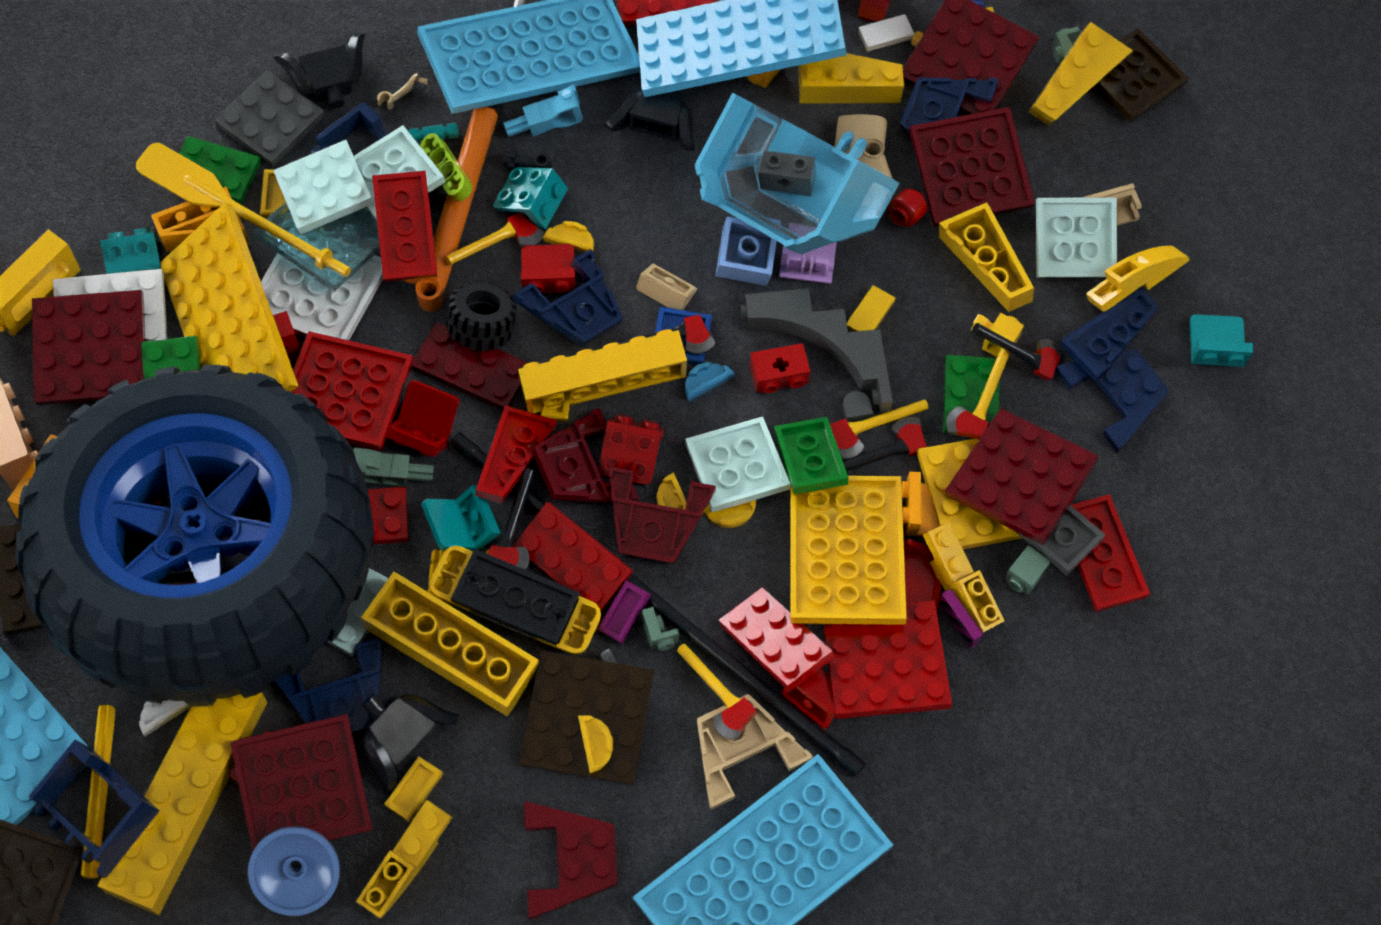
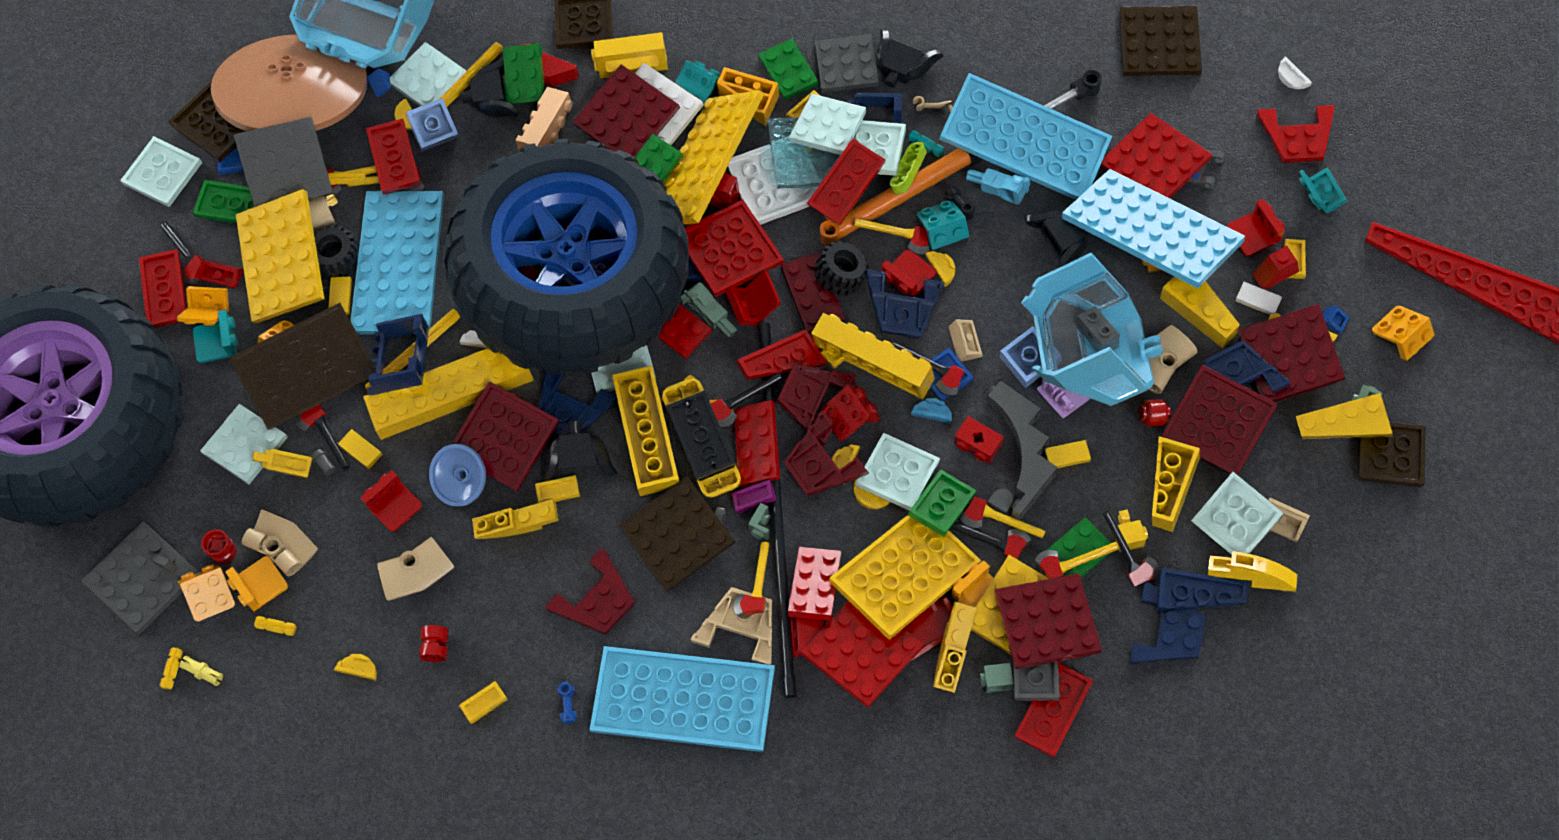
camera: 55 degrees right, 0 degrees up
(203, 189) = (763, 74): yellow piece -> none
(461, 521) = (716, 371): teal bracket -> none
(597, 742) = (666, 549): yellow tile -> none
(960, 618) = (930, 668): magenta tile -> none
(1218, 341) = (1263, 654): teal bracket -> none

